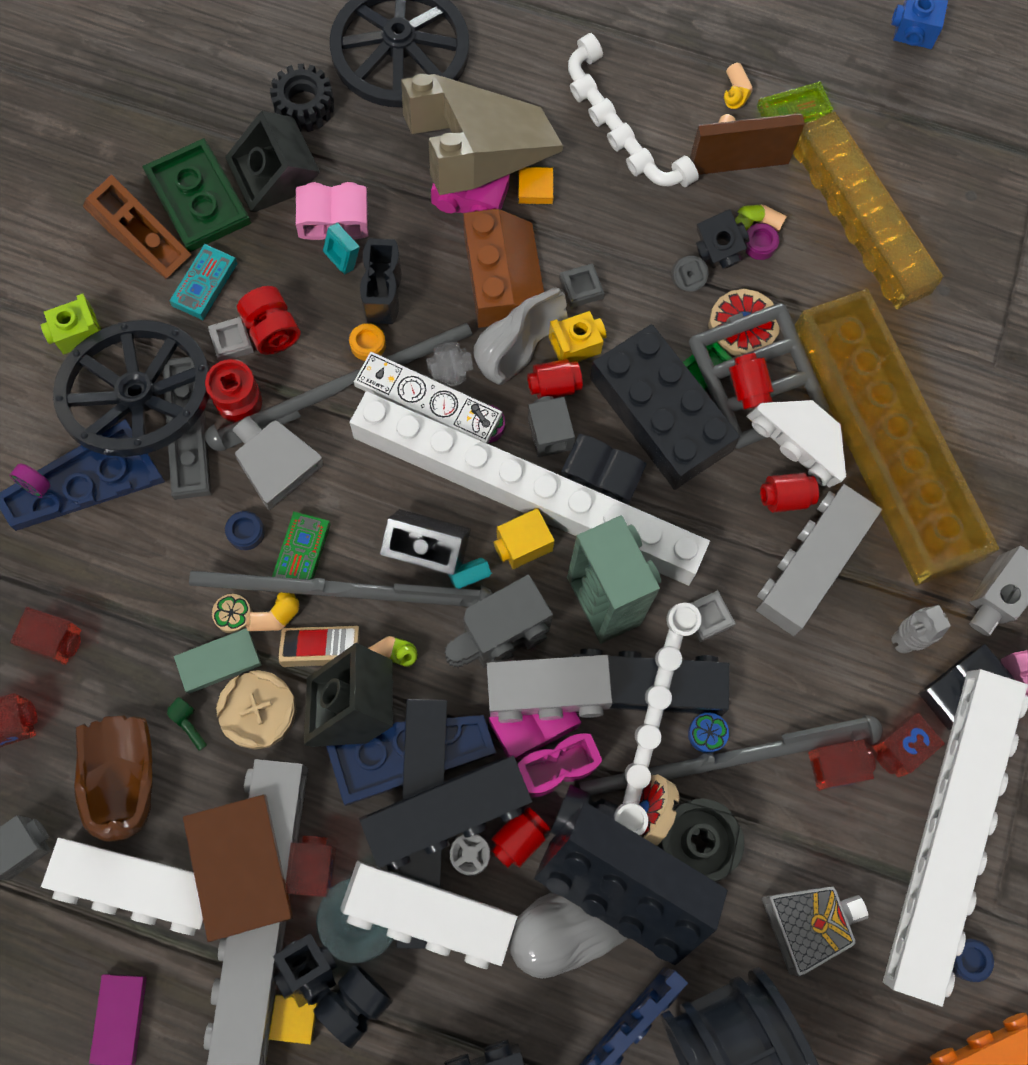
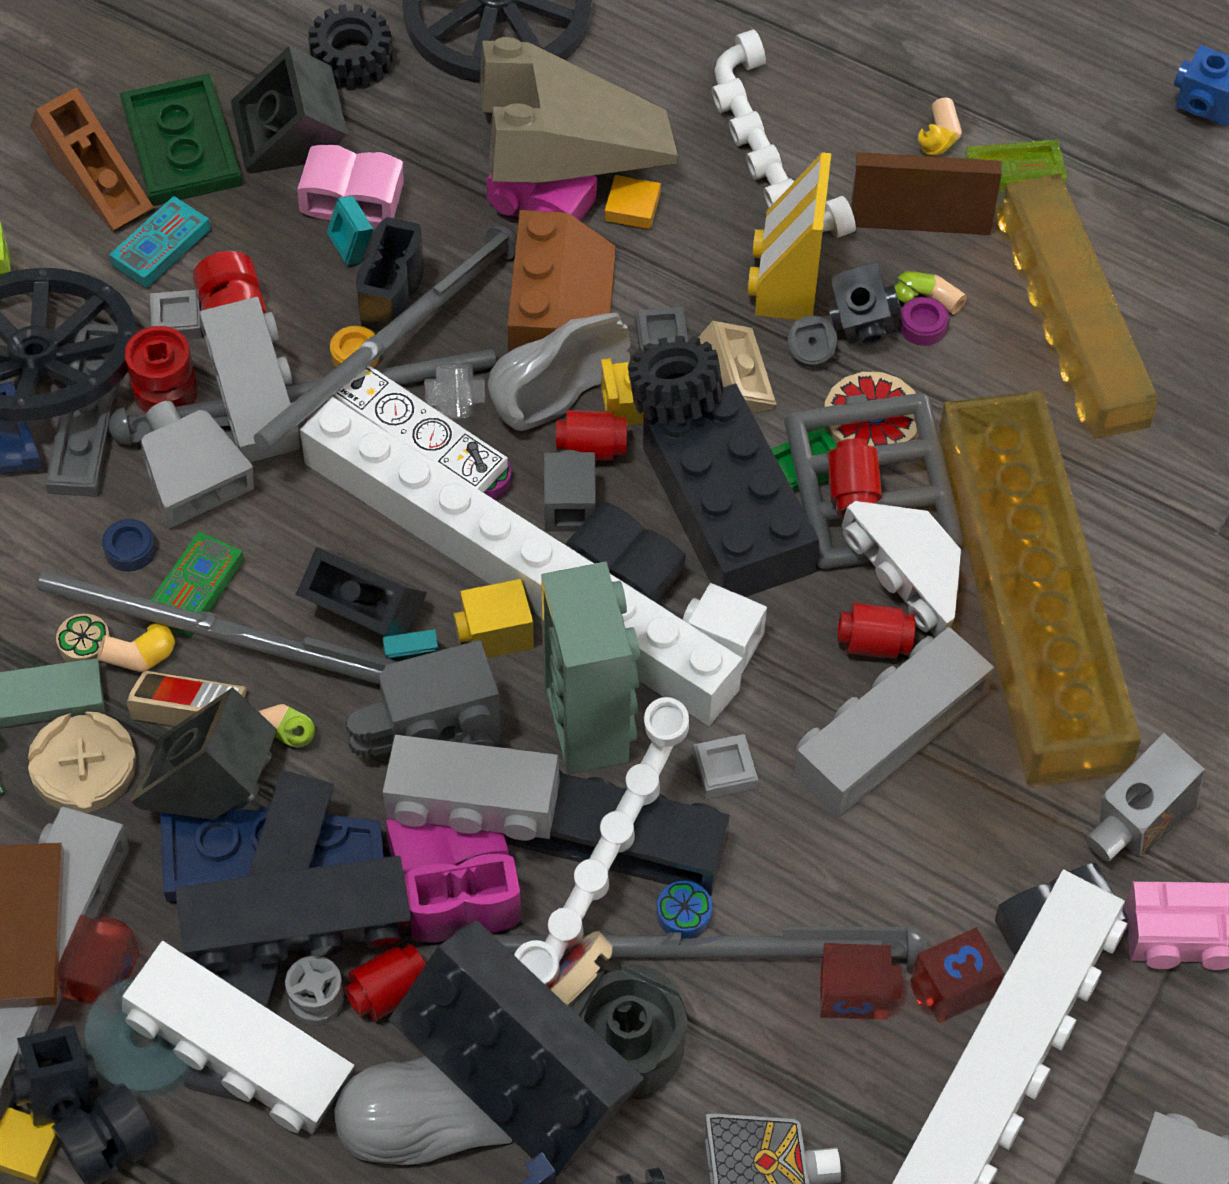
camera: 15 degrees right, 15 degrees down
(303, 386) = (249, 373): none -> light grey brick
(451, 237) = (500, 243): none -> dark grey bar
(607, 317) = (675, 379): none -> black tyre
(638, 302) = (741, 363): none -> tan slope
(666, 203) = (791, 247): none -> yellow slope
(686, 508) = (728, 620): none -> white brick
(921, 629) = (1002, 818): light grey hinge -> none

